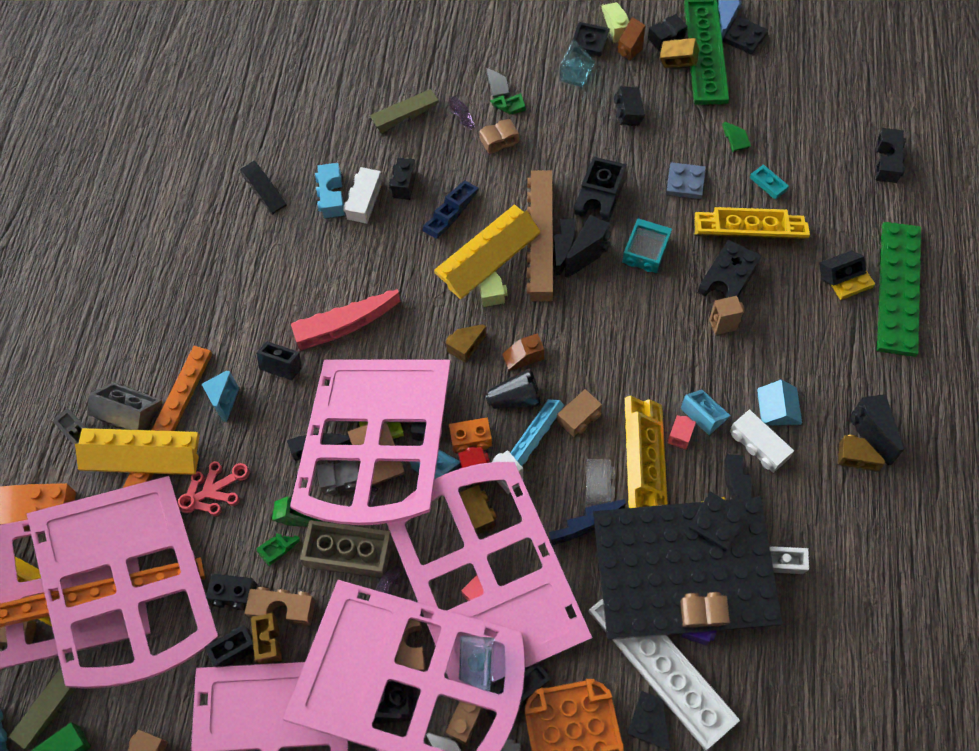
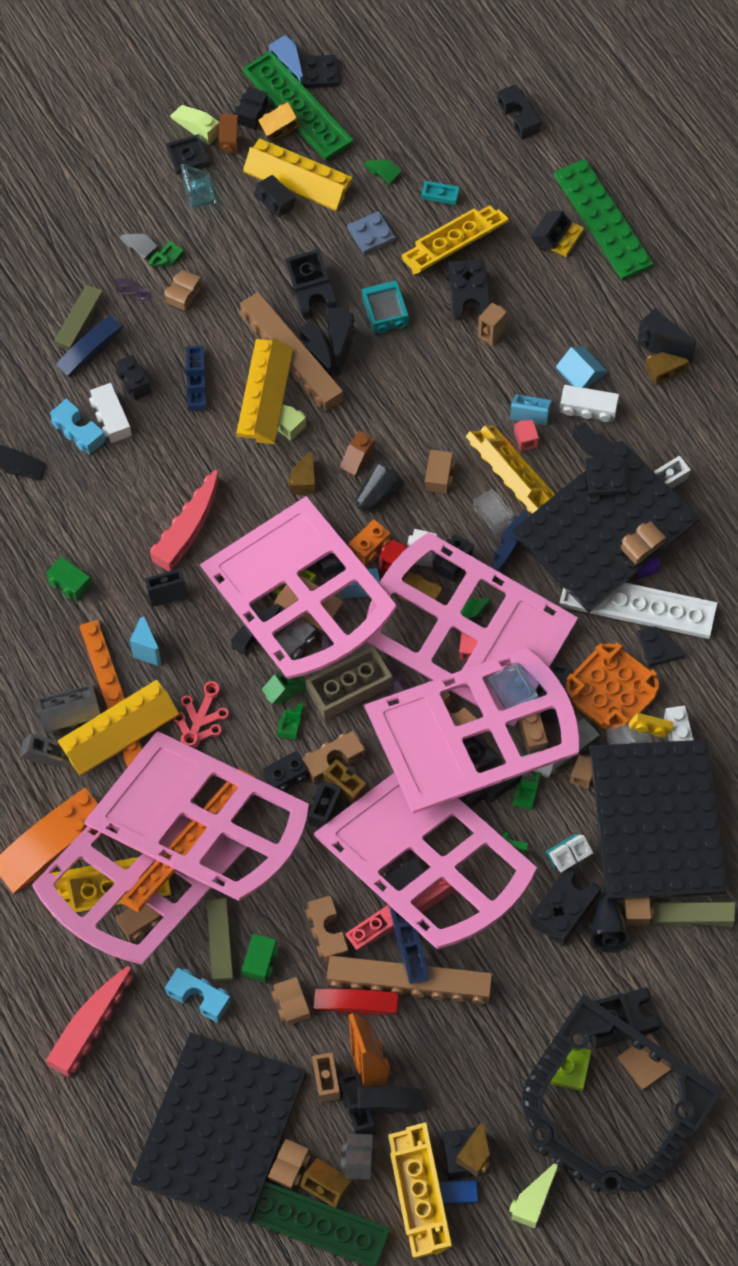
camera: 40 degrees left, 0 degrees up
(218, 303) = (69, 578): none -> green brick
(397, 134) = (93, 342): none -> dark blue slope
(509, 558) = (475, 607): none -> green slope
(536, 430) = (416, 502): medium azure plate -> none
(538, 493) = (446, 567): none -> black brick
(663, 101) = (298, 174): none -> yellow slope

